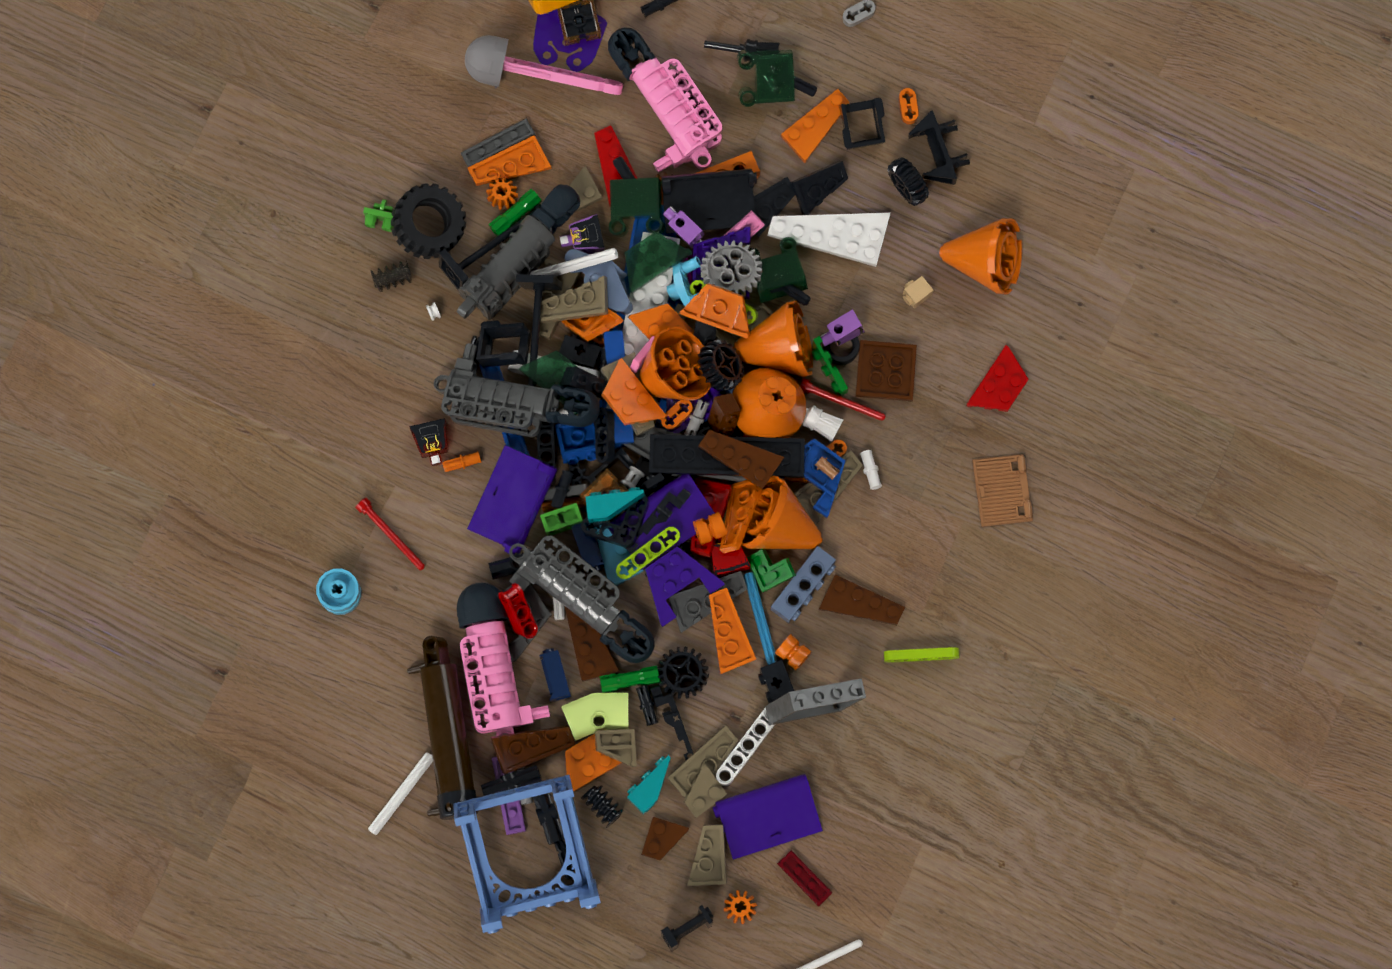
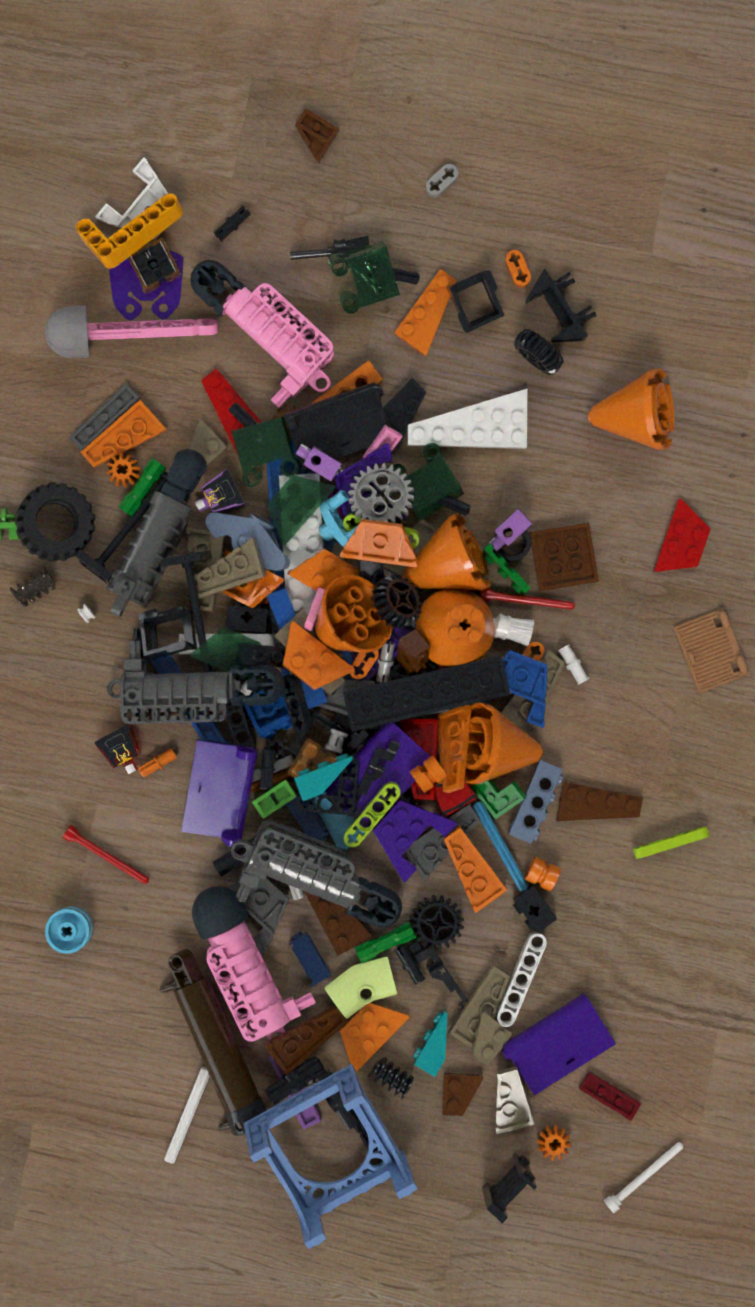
camera: 15 degrees left, 10 degrees up
(514, 600) = (257, 910): red piece -> none
(578, 263) = (218, 530): white axle -> none
(617, 745) = (390, 1014): dark tan wing -> none
(745, 459) = (448, 694): reddish brown wing -> none
(815, 701) = (581, 927): dark grey window -> none
(817, 185) = (444, 379): black wing -> none
(827, 467) = (531, 678): medium nougat pin -> none
(917, 292) = (575, 466): tan brick -> none

